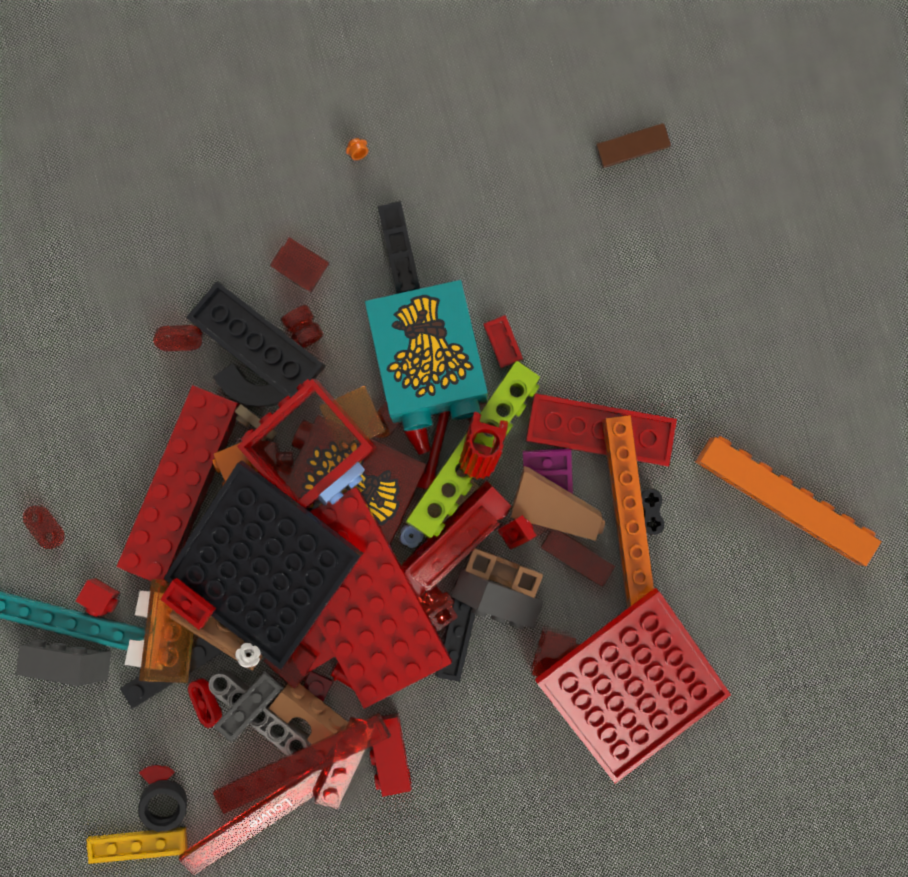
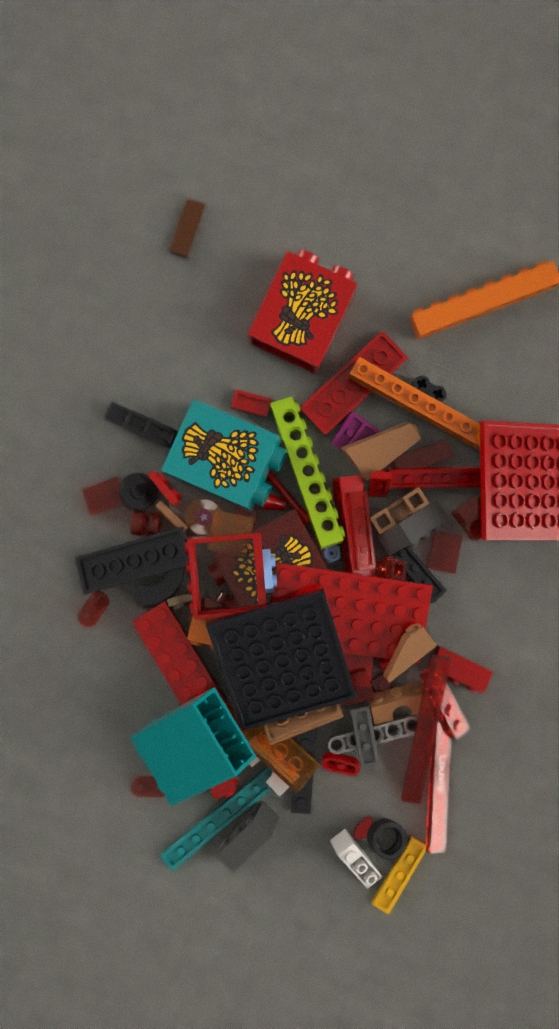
camera: 50 degrees left, 0 degrees up
(109, 541) = (193, 747): none -> teal brick
(120, 788) = (355, 858): none -> white slope
(187, 603) = (271, 726): red plate -> none
(246, 661) = (332, 716): white plate -> none
(328, 346) = (170, 516): none -> medium nougat tile
(329, 294) = (137, 491): none -> black tile
(352, 374) = (200, 516): none -> clear orange tile
(354, 311) = (162, 483): none -> red plate
(357, 149) = (57, 404): orange plate -> none
(368, 688) = (410, 649): none -> medium nougat slope
(479, 459) = (316, 472): red piece -> none
(498, 650) = (444, 552): none -> clear red plate
(565, 583) = (435, 477): none -> red tile
(636, 323) = (302, 310): none -> red brick

